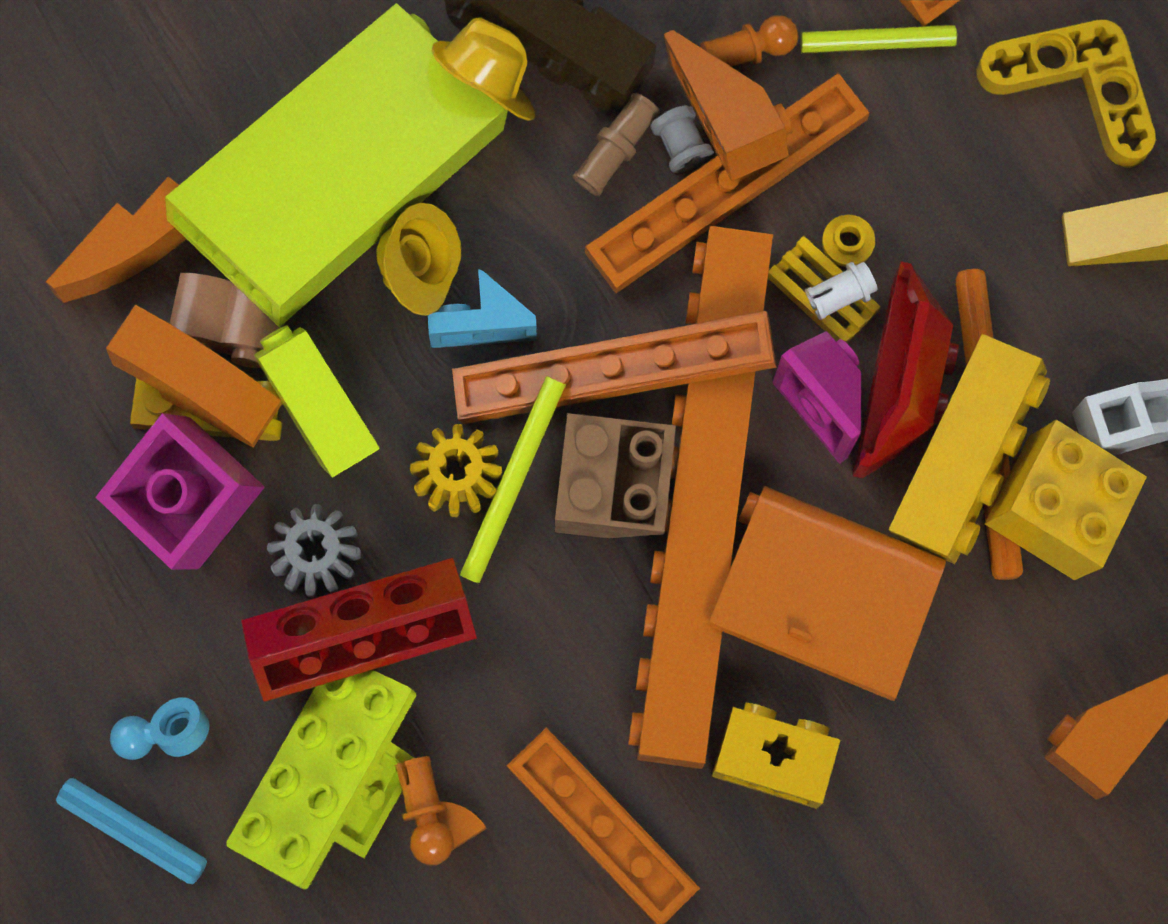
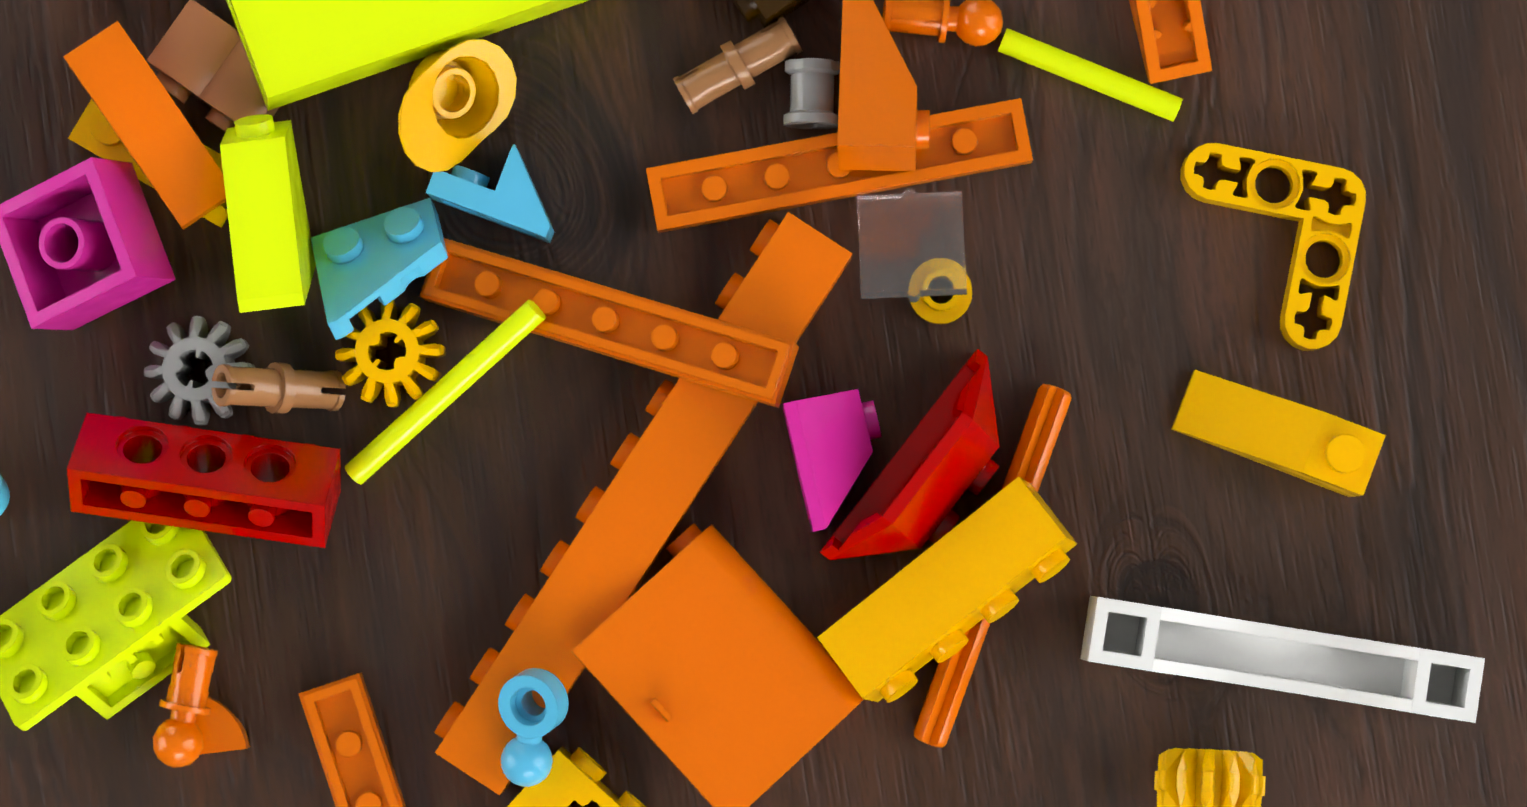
camera: 30 degrees right, 10 degrees up
(383, 532) = (278, 388): none -> medium nougat pin
(413, 403) = (376, 260): none -> medium azure wing
(614, 477) = (552, 441): medium nougat slope -> none
(713, 721) = (527, 757): none -> medium azure plate
(811, 214) = (911, 245): none -> clear piece
(828, 269) = (904, 385): yellow tile -> none
(842, 290) = (899, 349): white pin -> none
(1066, 500) = (1025, 694): yellow brick -> none

